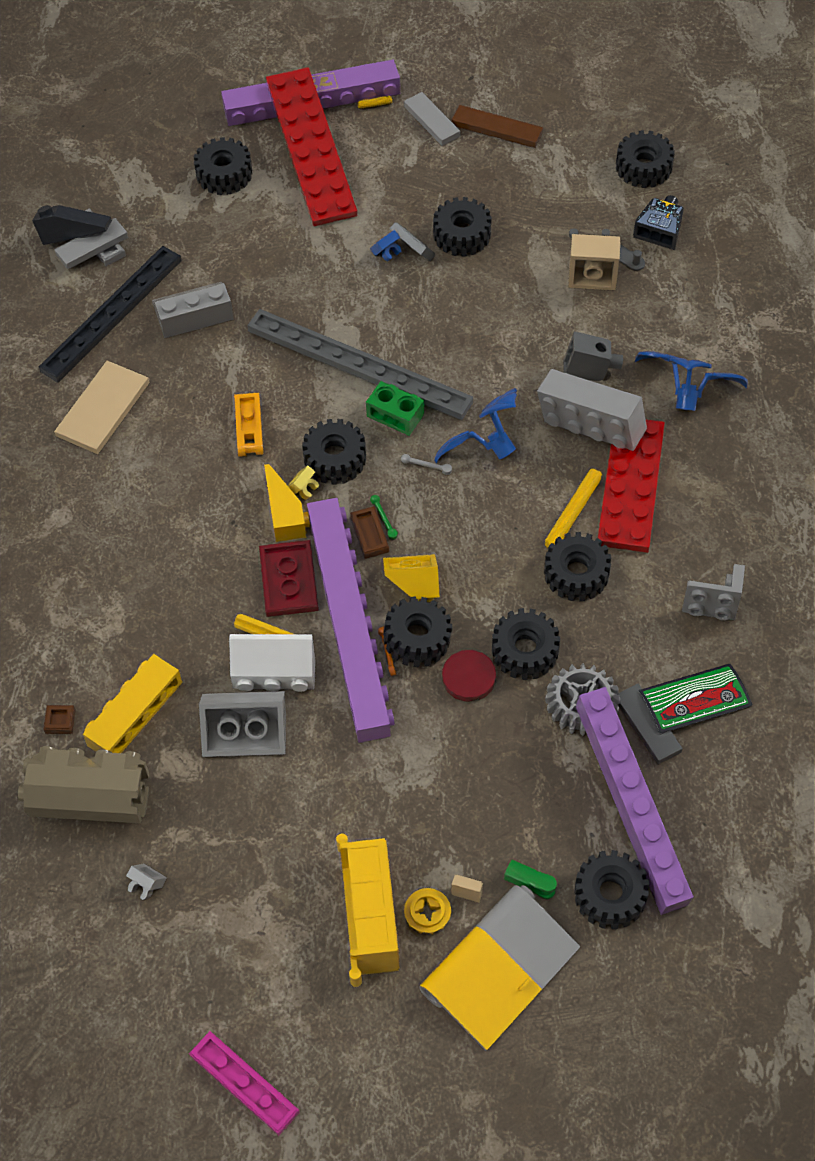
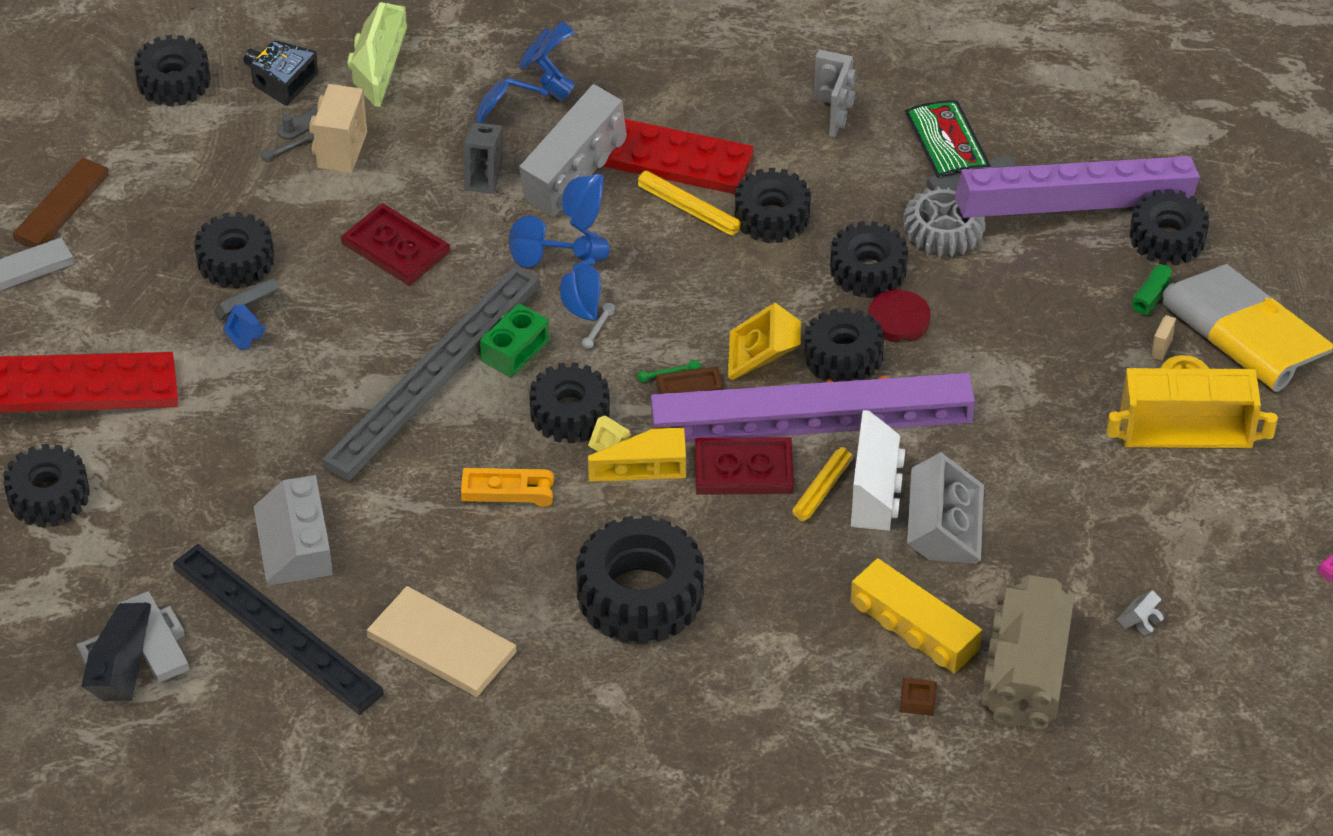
camera: 85 degrees left, 10 degrees down
(146, 486) = (634, 612): none -> black tyre
(492, 324) = (395, 244): none -> dark red tile
(696, 276) = (377, 50): none -> yellowish green wedge

